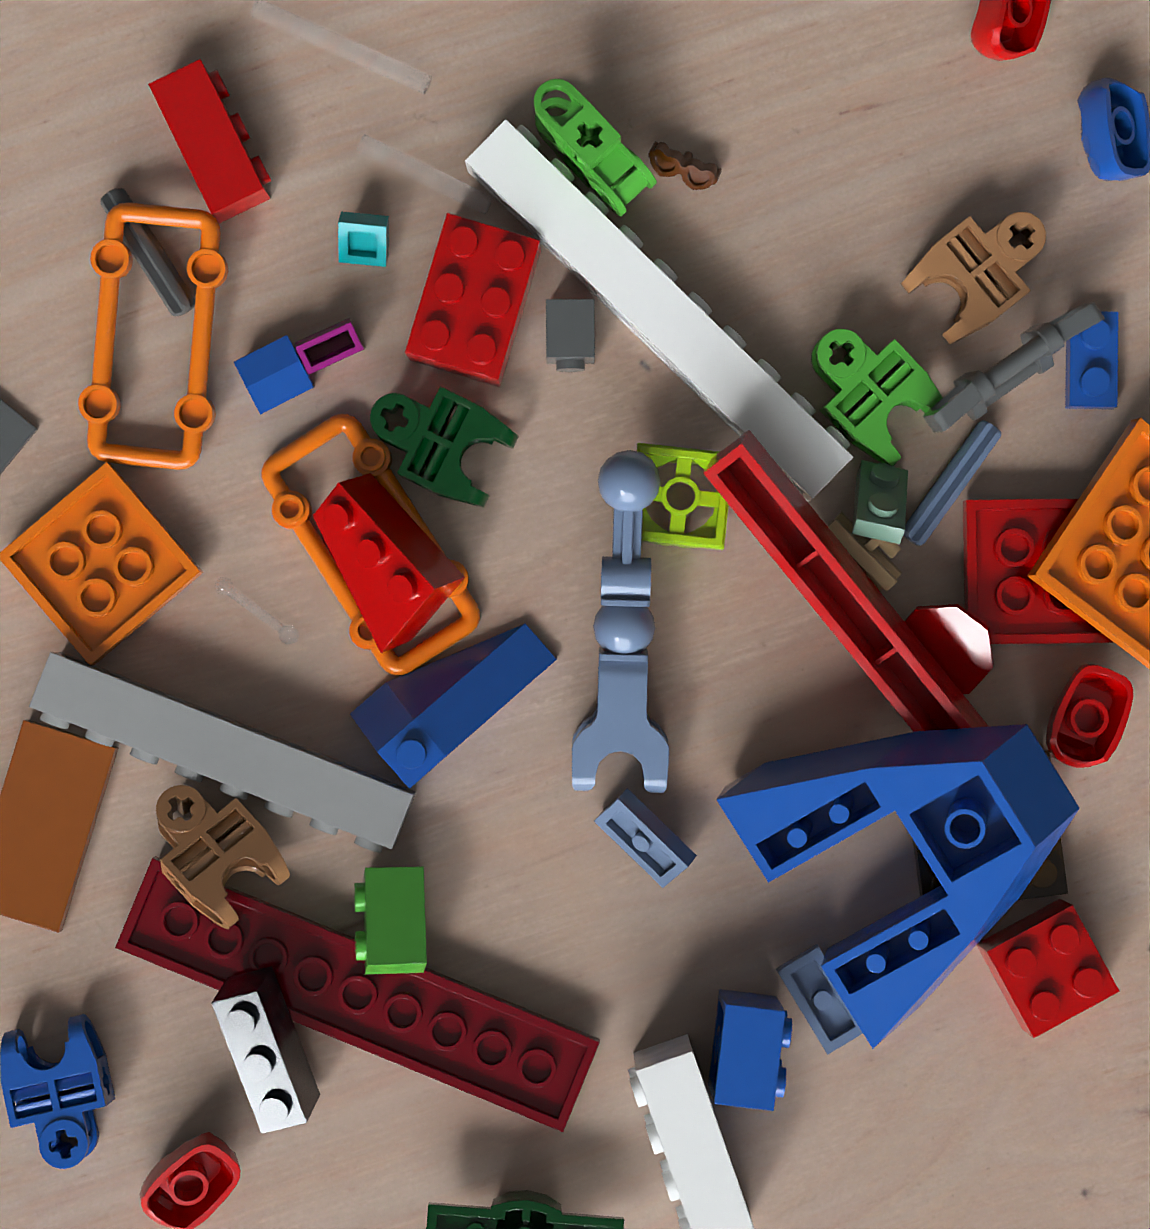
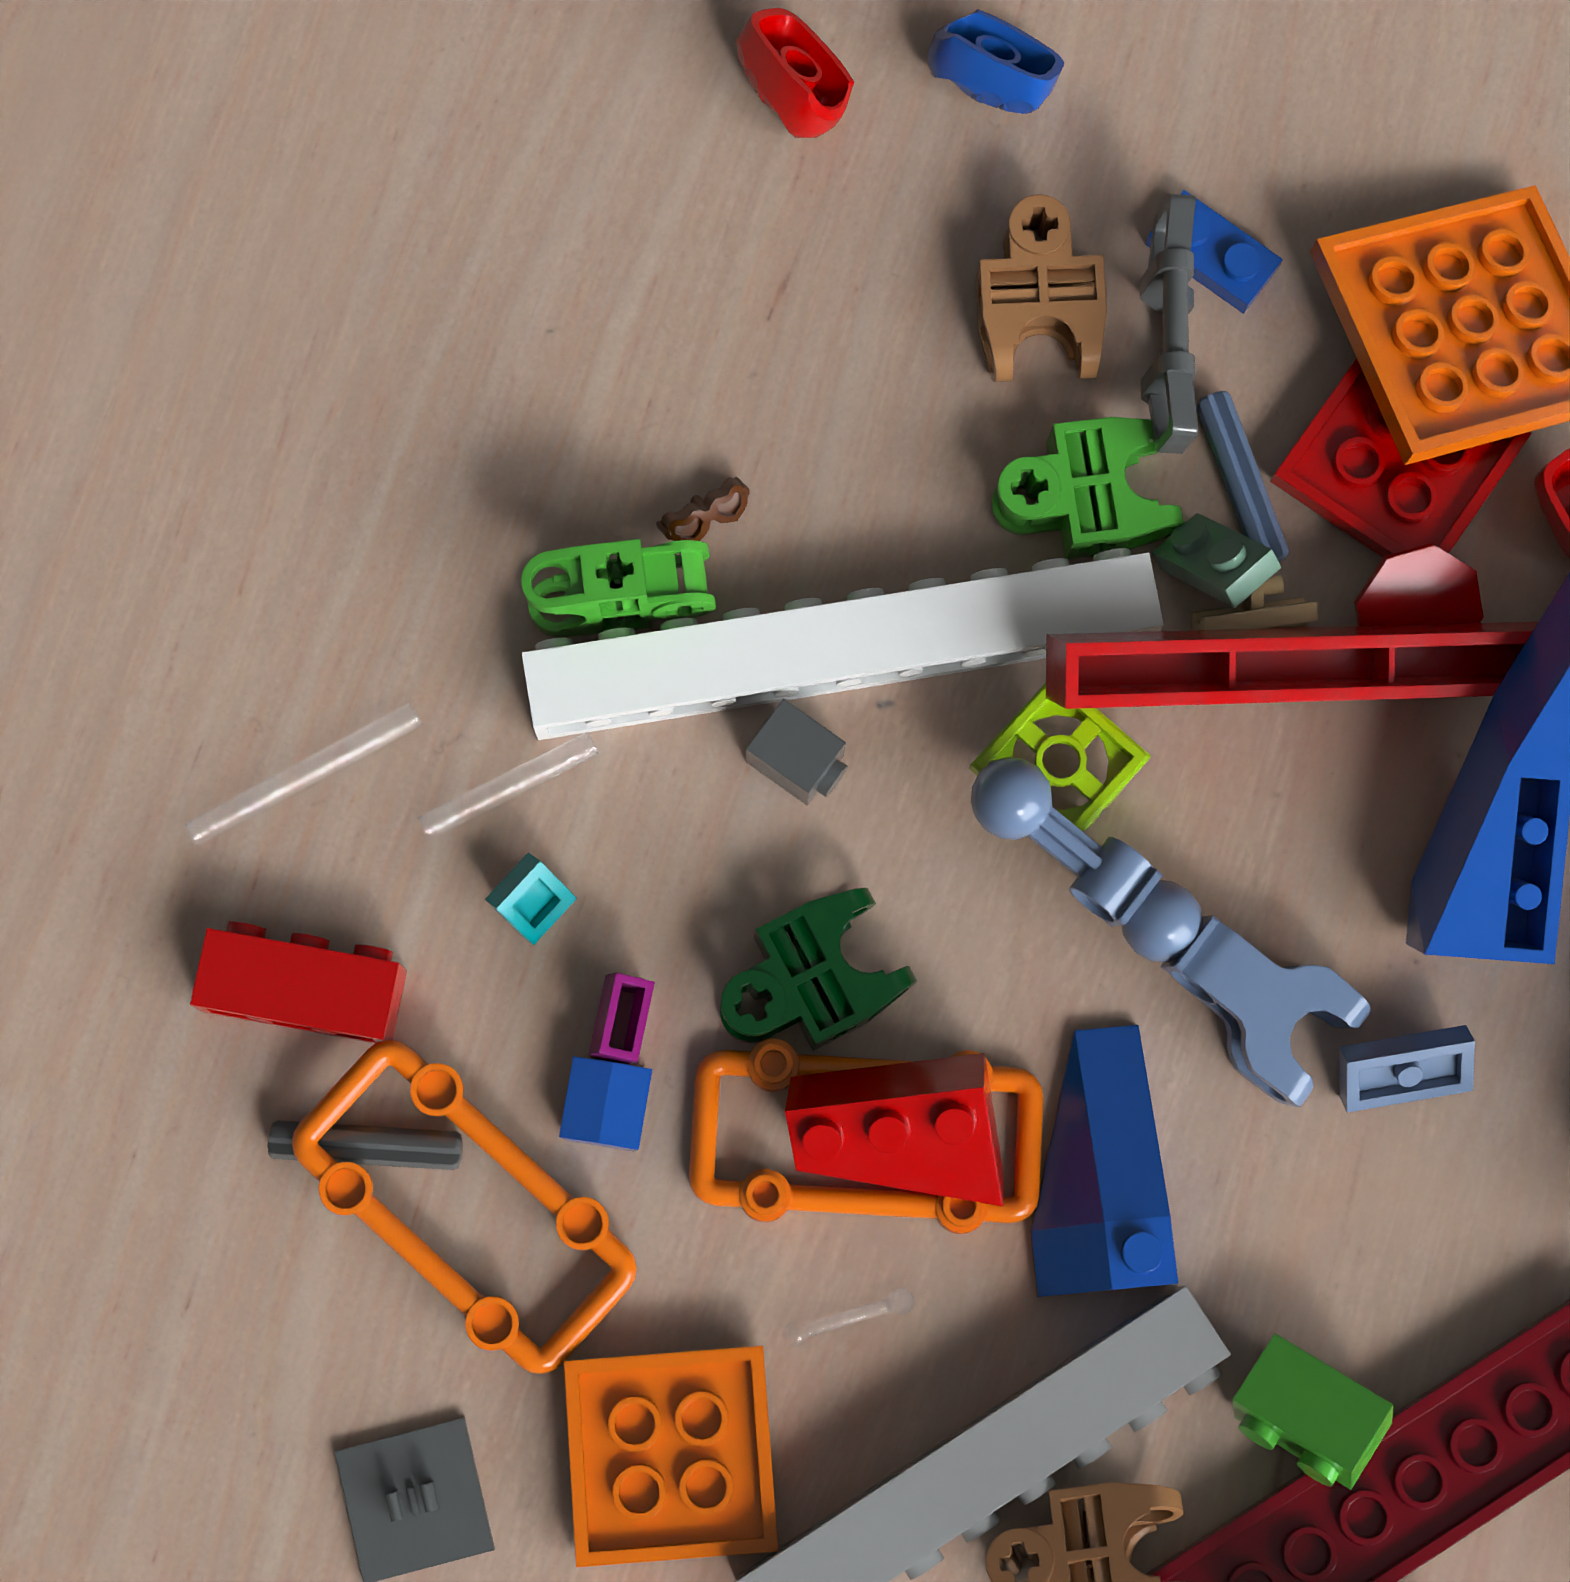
camera: 55 degrees left, 10 degrees down
(473, 299) = (687, 828): red brick -> none

